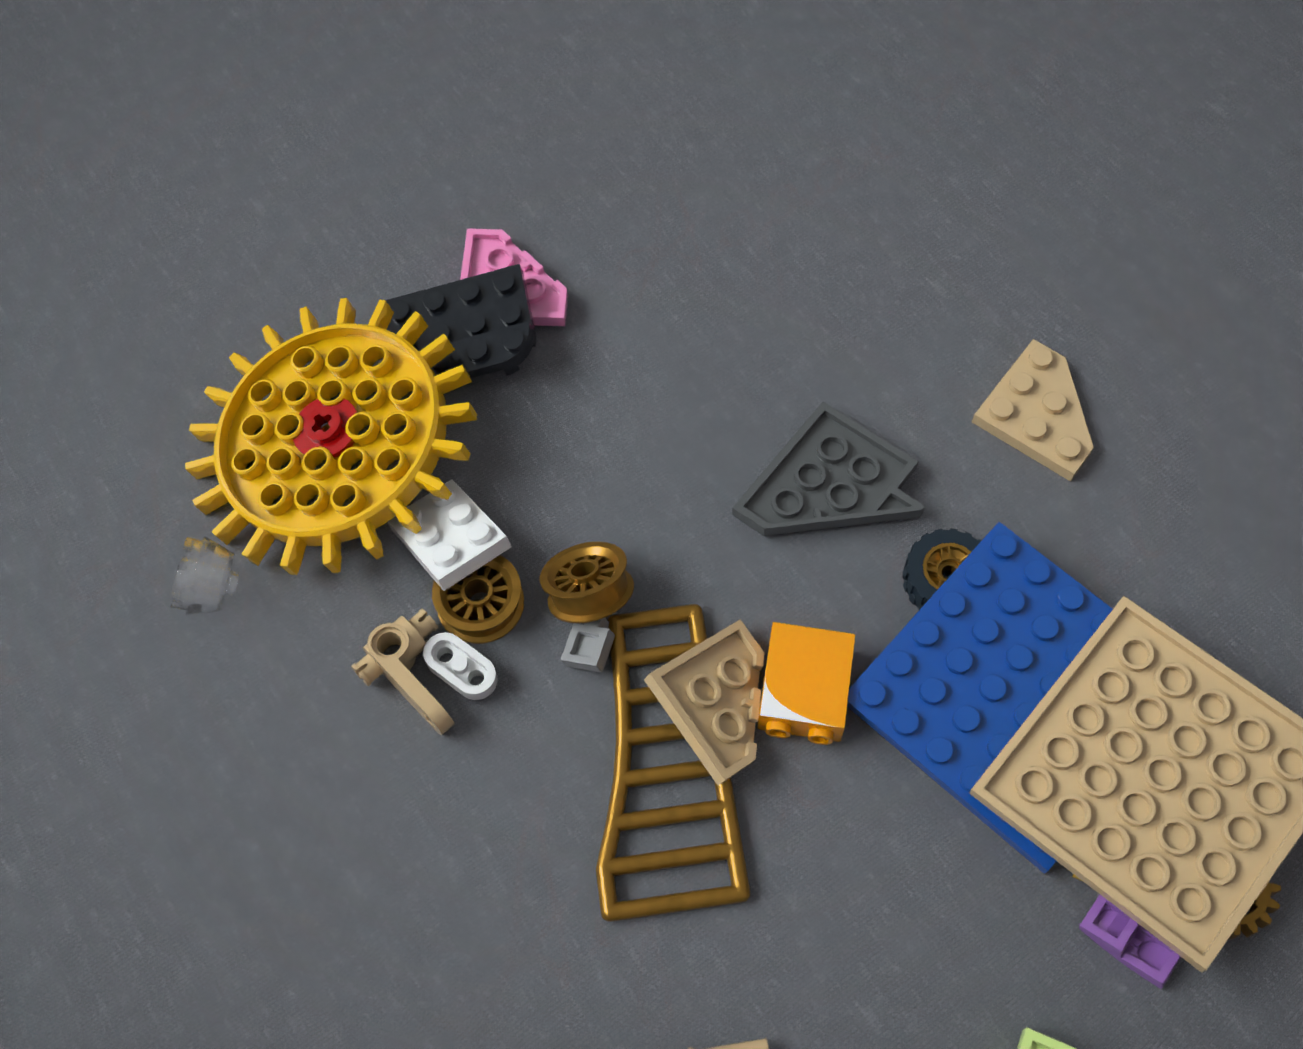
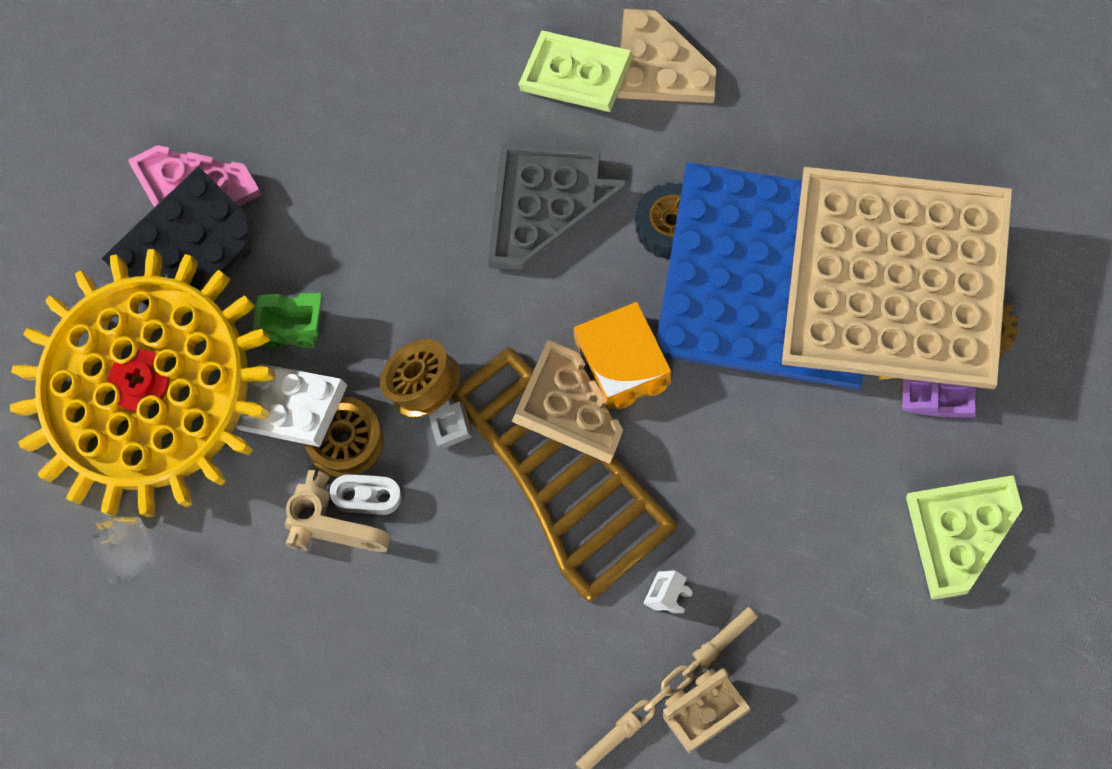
camera: 30 degrees left, 5 degrees up
(504, 452) = (289, 319): none -> bright green cylinder
(688, 962) = (666, 590): none -> white tile
(944, 372) = (575, 71): none -> yellowish green plate

